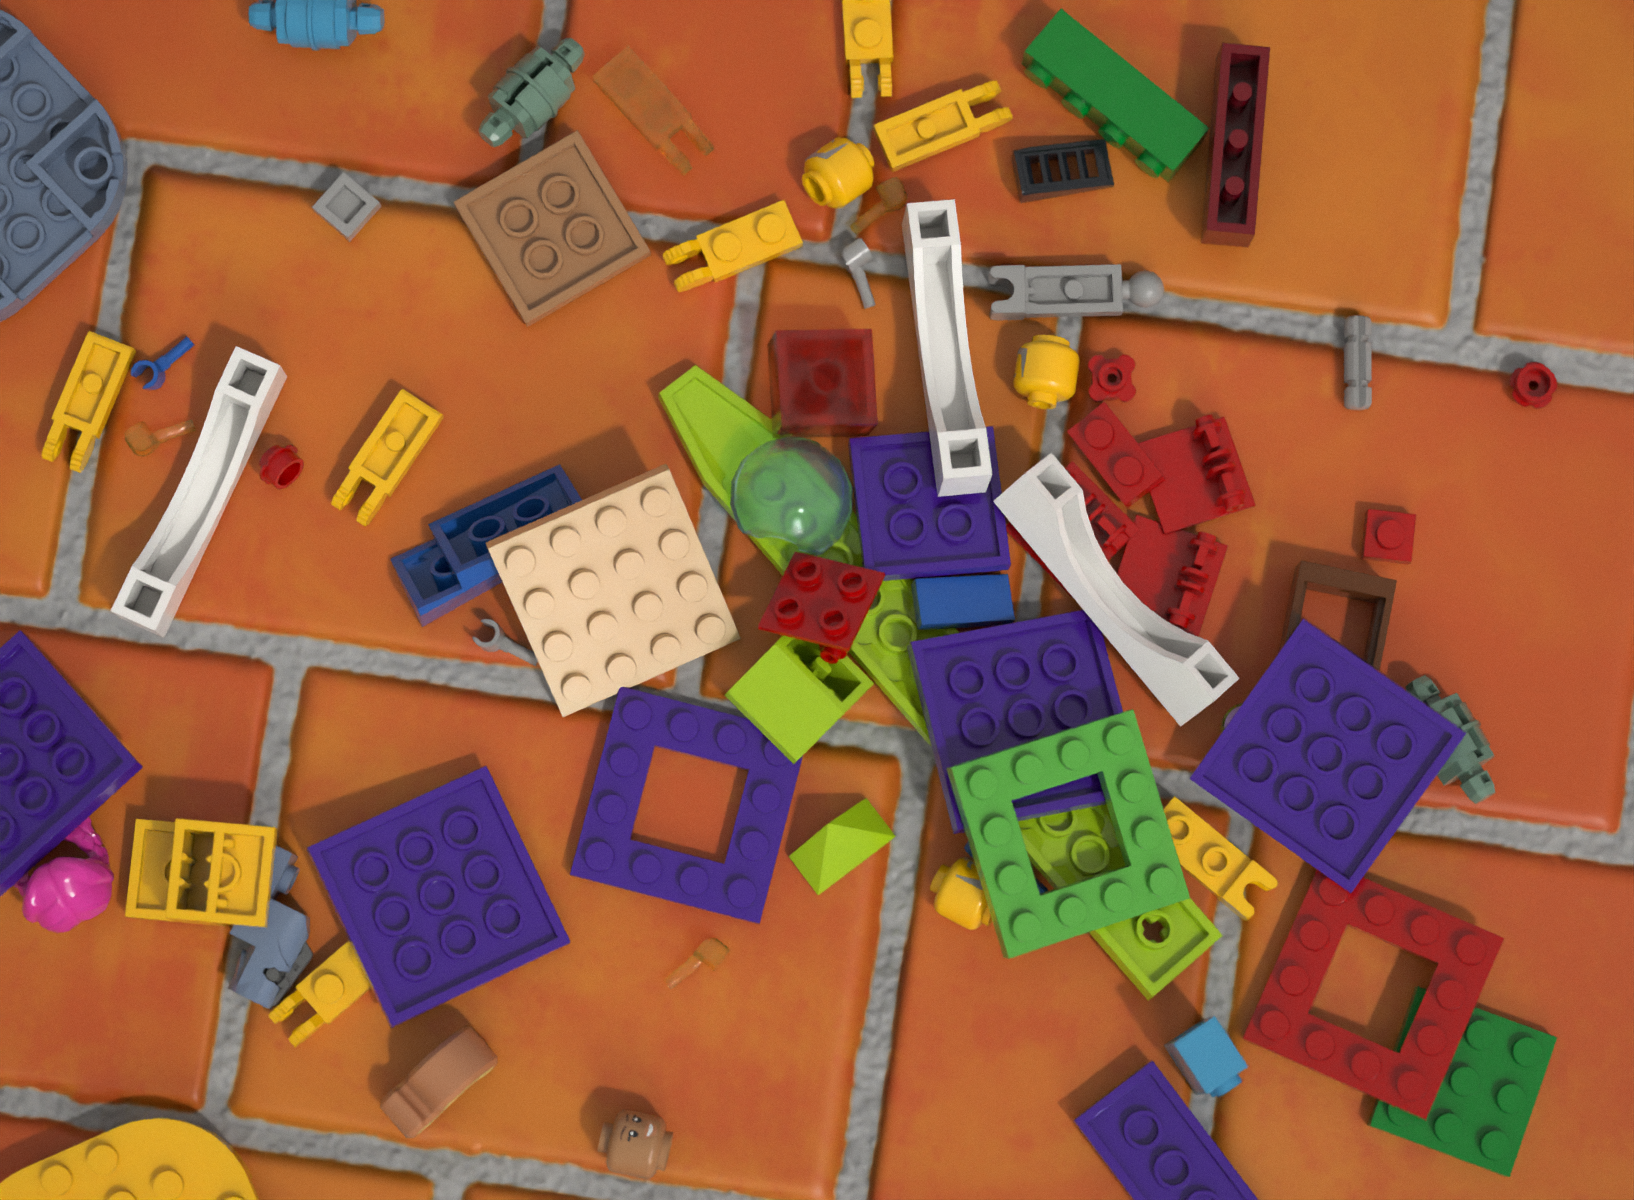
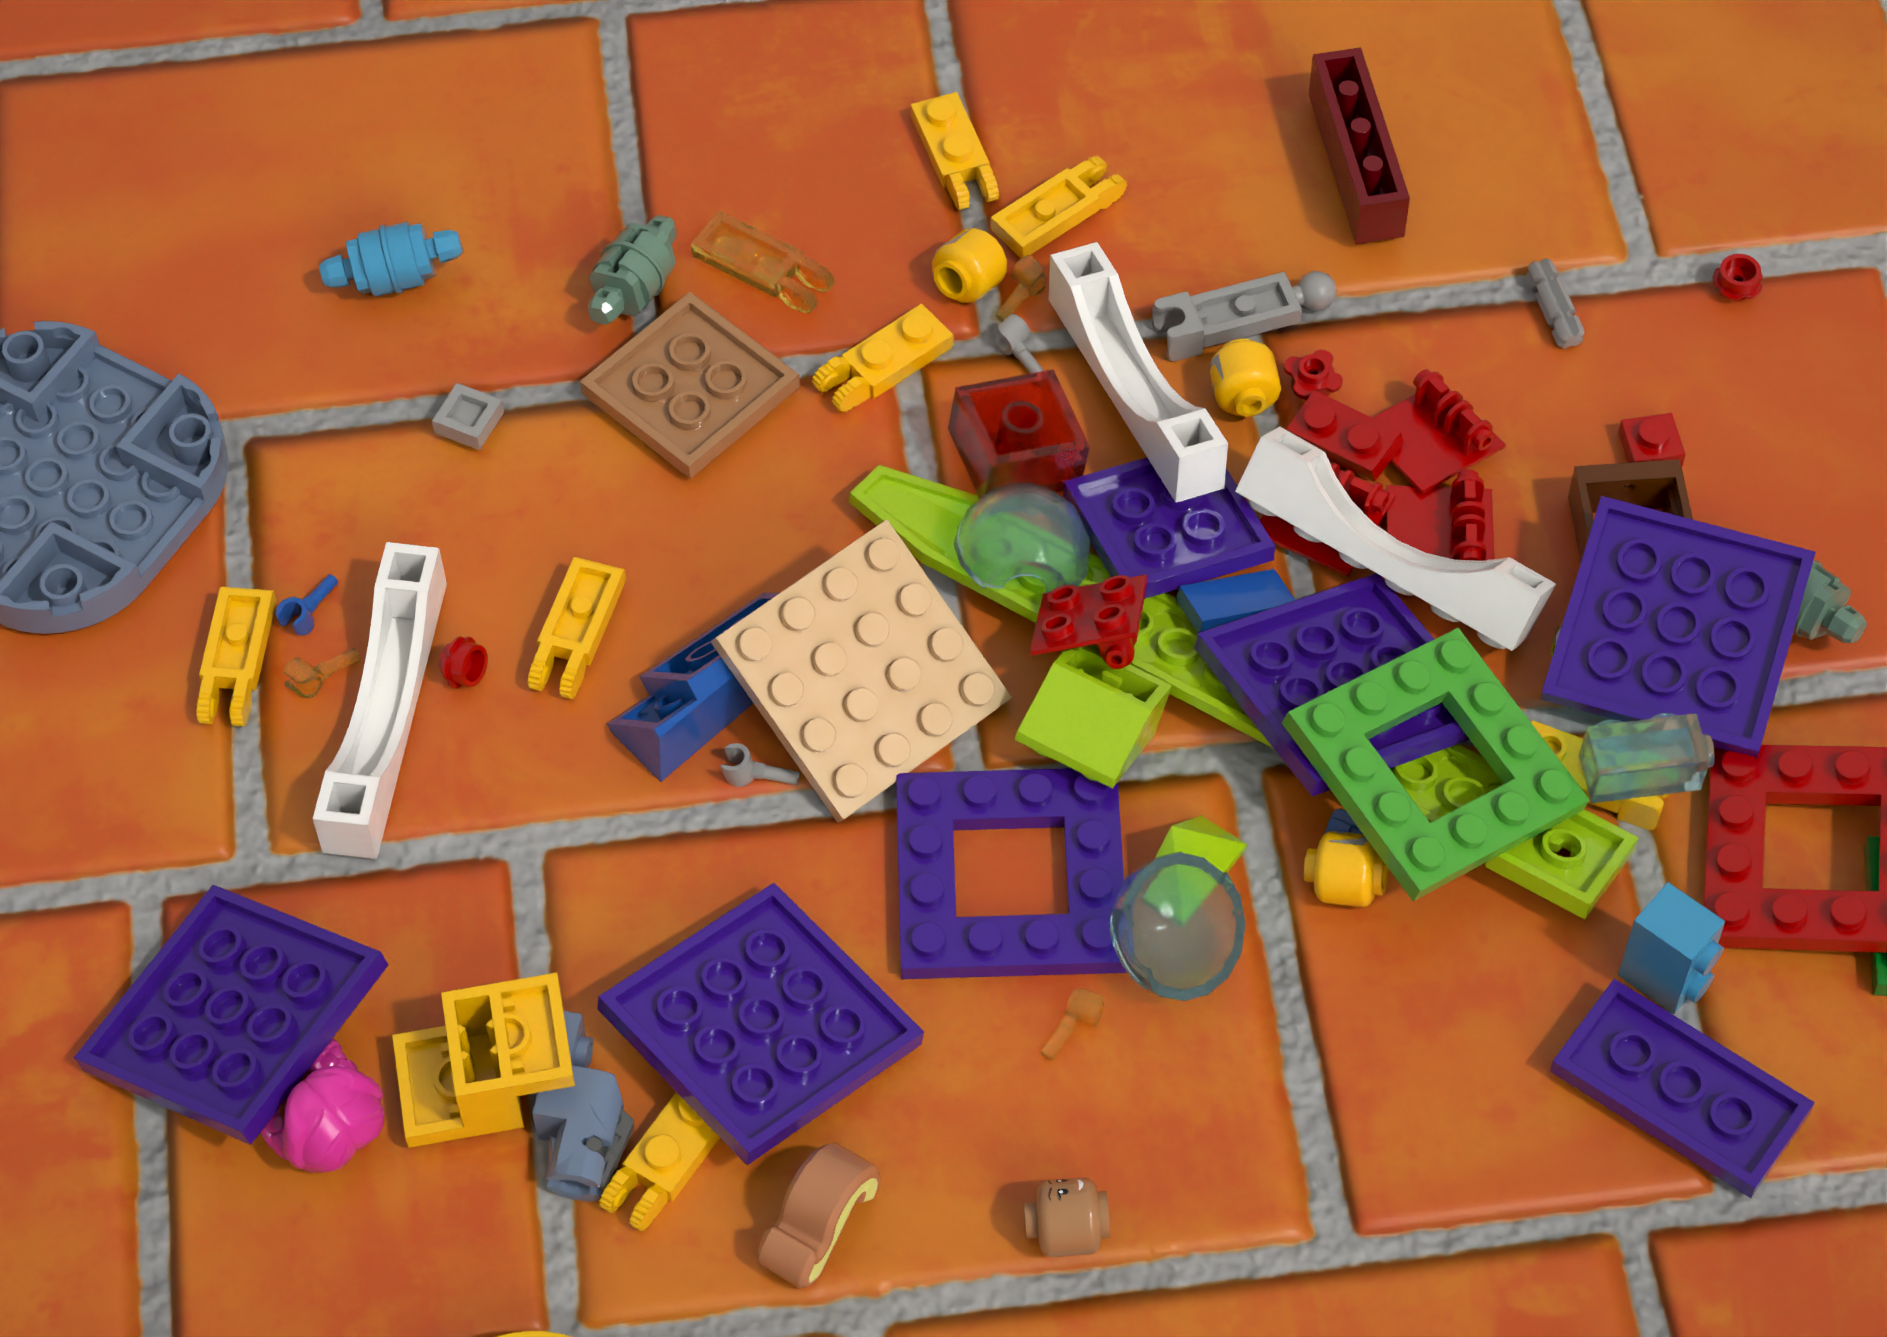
camera: 10 degrees left, 25 degrees down
(804, 917) = (1178, 926): none -> clear light blue cylinder
(1048, 189) = (1183, 233): black slope -> none
(1113, 96) = (1222, 140): green brick -> none
(1250, 876) = (1645, 757): none -> clear light blue brick

